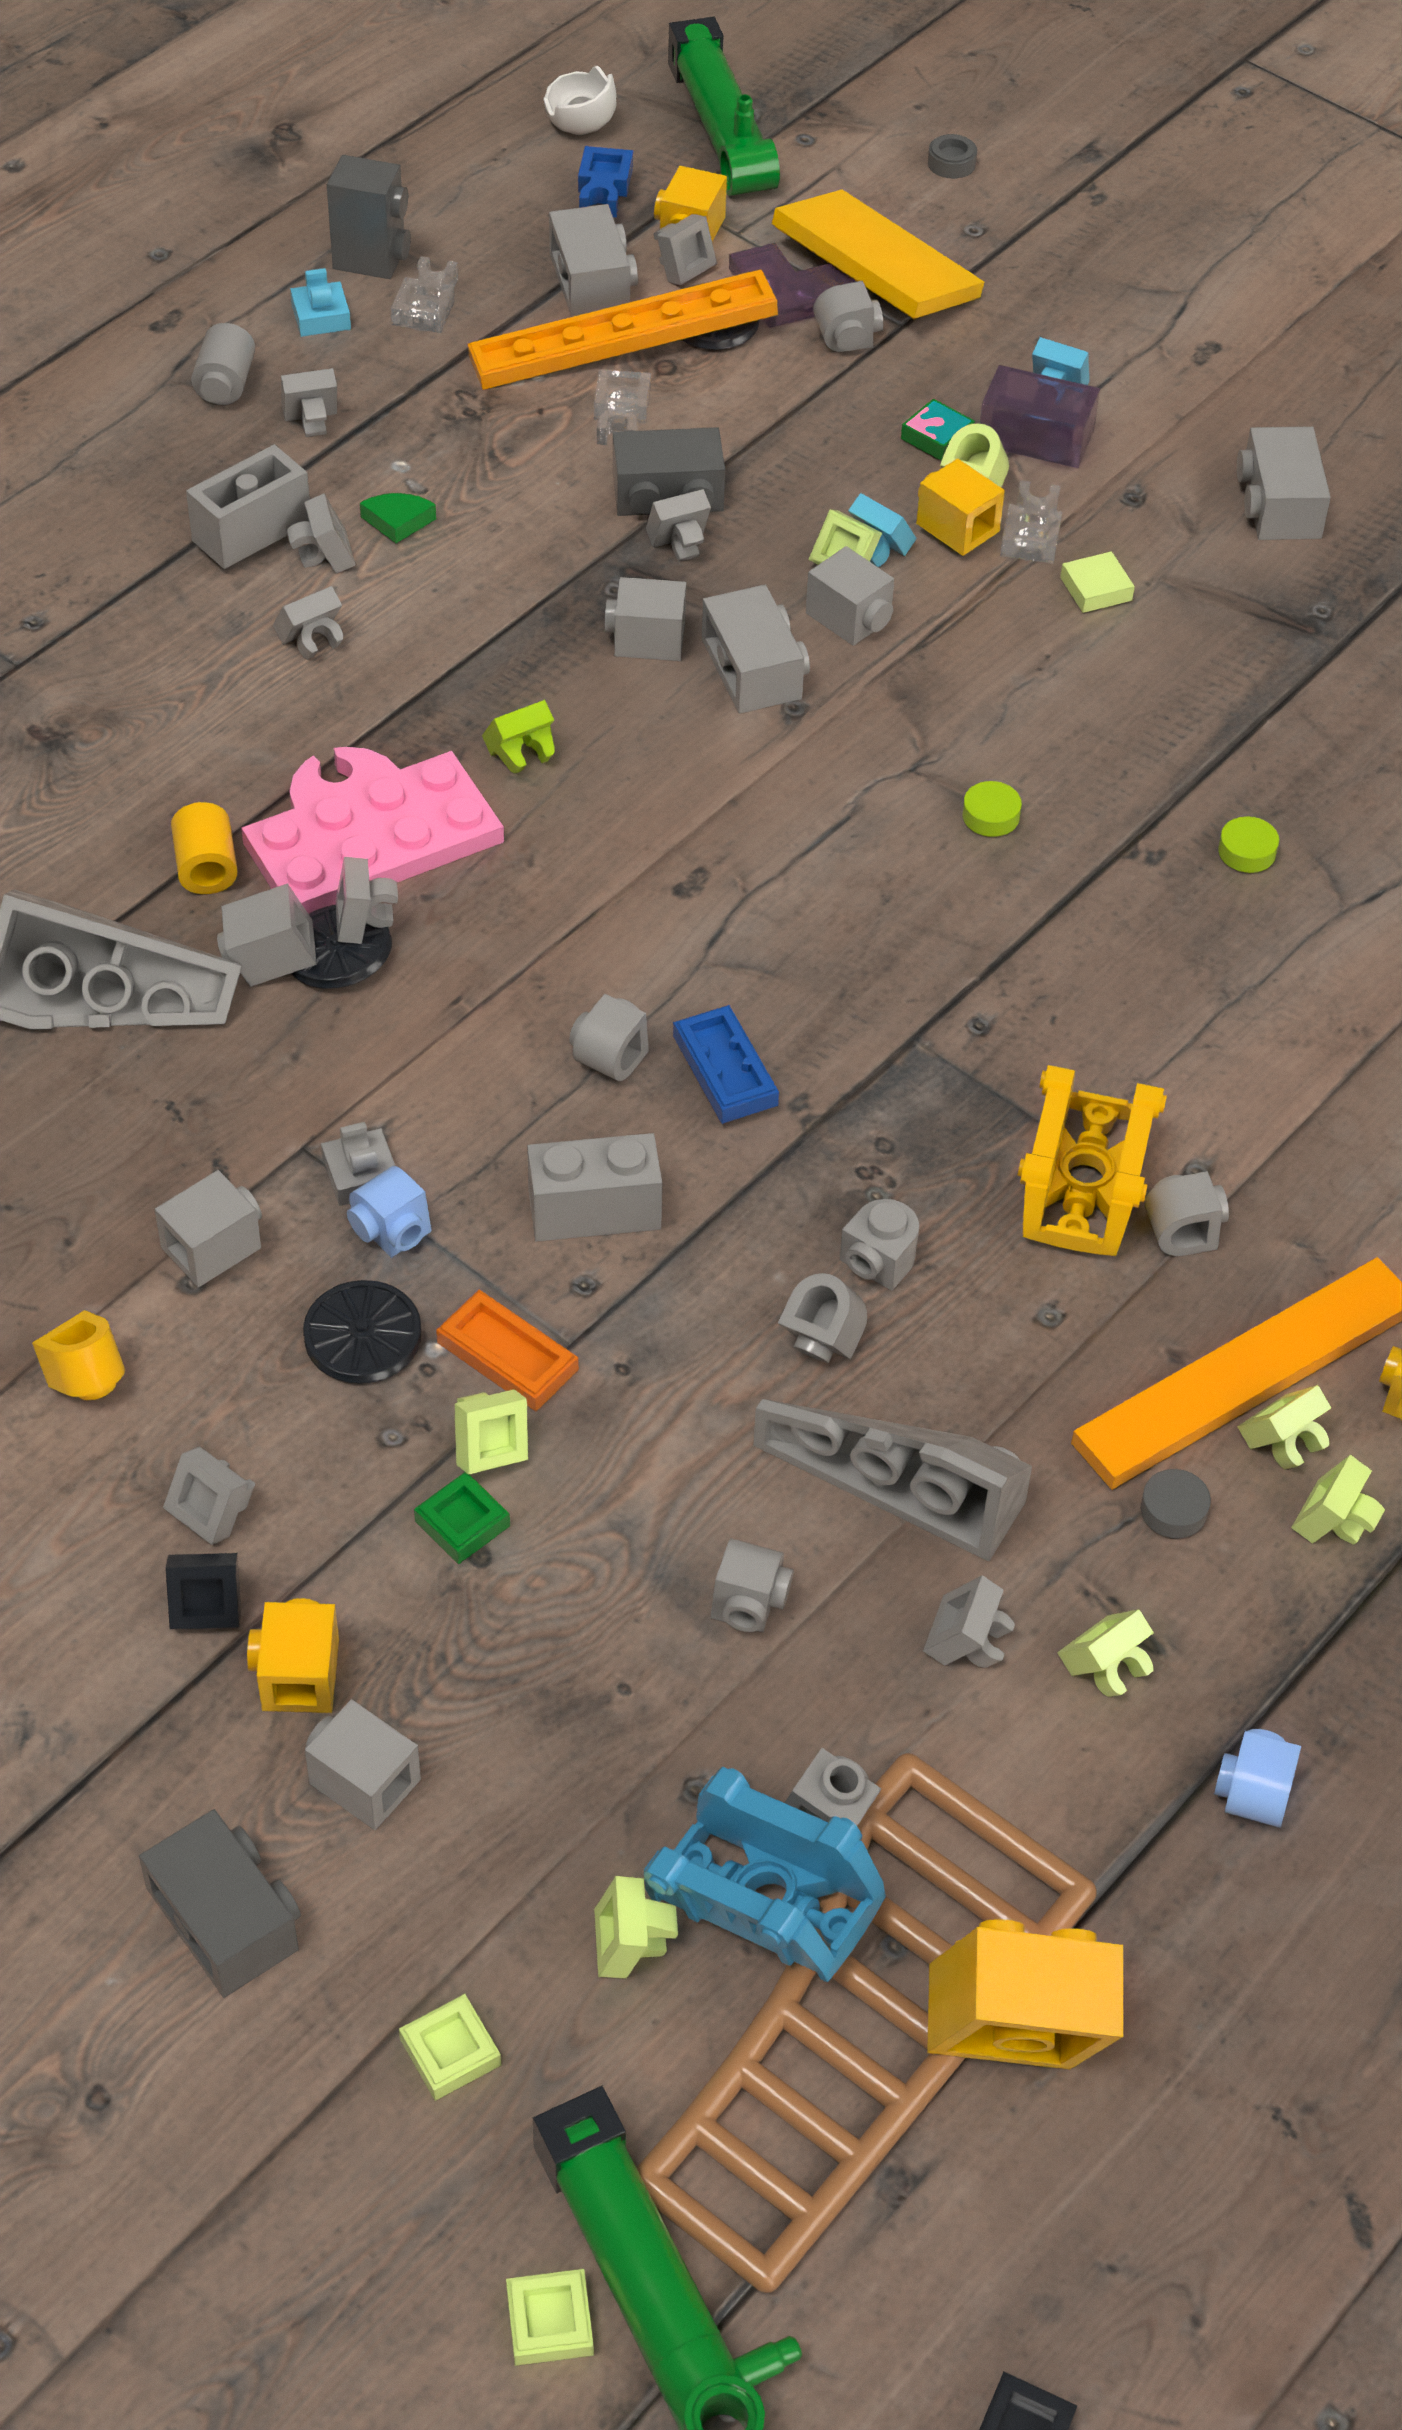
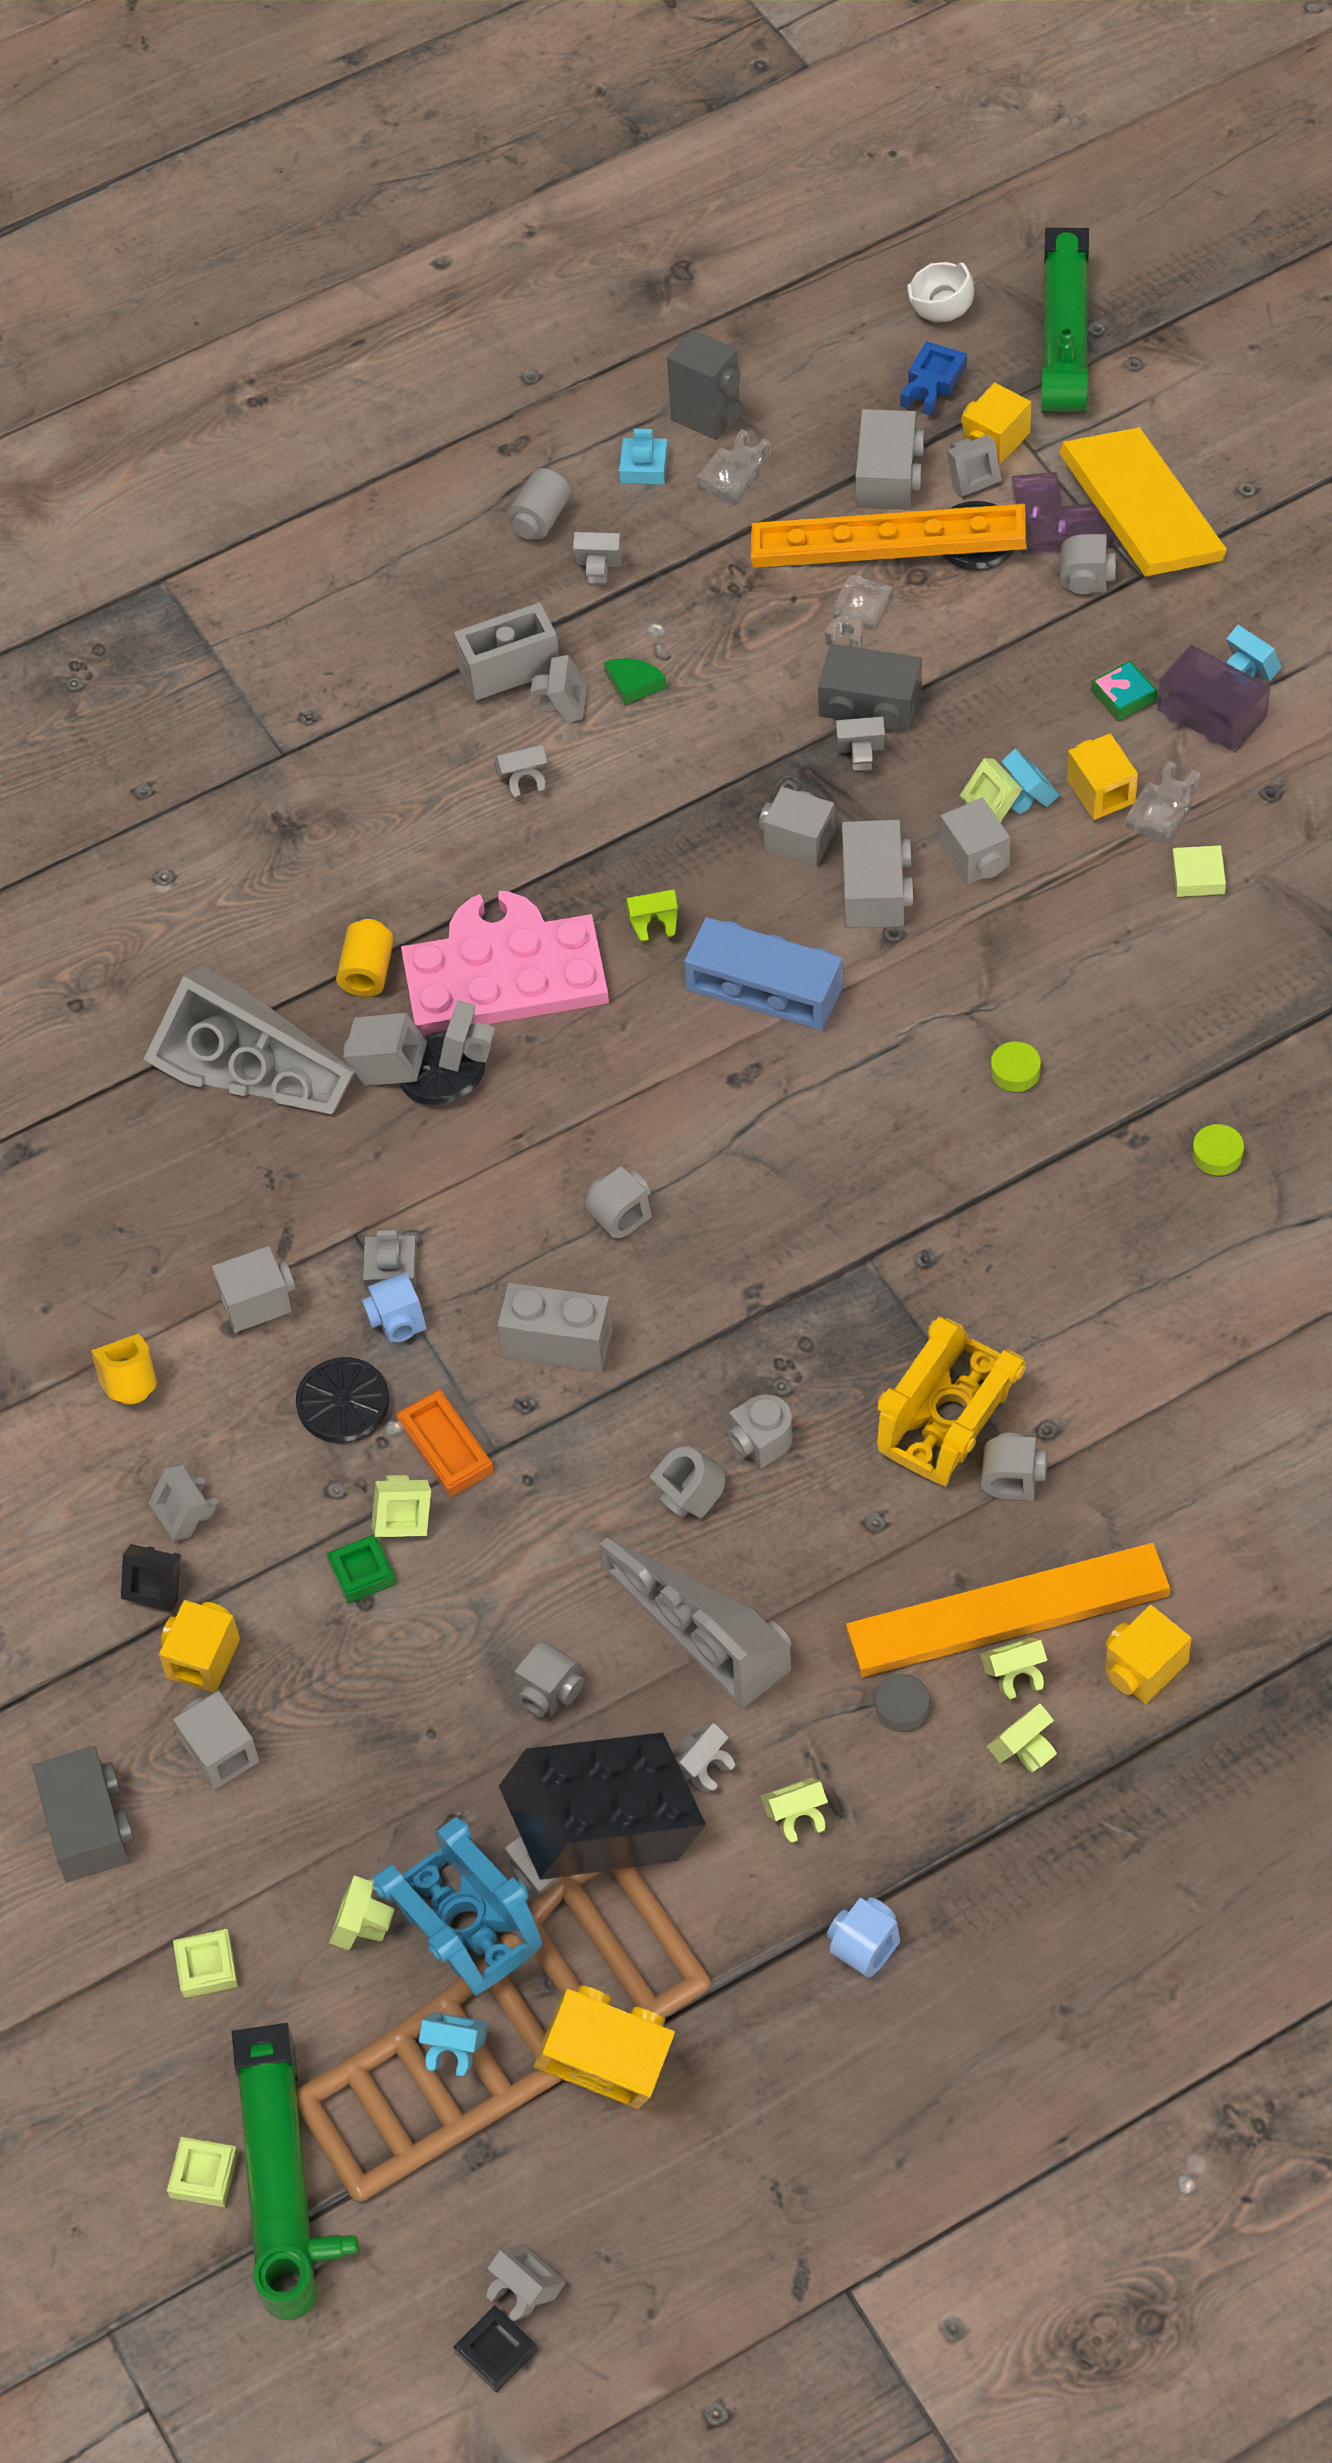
camera: 25 degrees right, 5 degrees up
(675, 770) = (764, 973): none -> medium blue brick
(725, 1064) = (702, 1245): blue plate -> none
(819, 2039) = (452, 2034): none -> medium azure tile
(893, 1705) = (601, 1805): none -> black brick
(952, 156) = (1257, 408): dark grey tile -> none
(981, 450) = (1138, 732): yellowish green plate -> none
(1032, 2322) = (526, 2276): none -> light grey tile

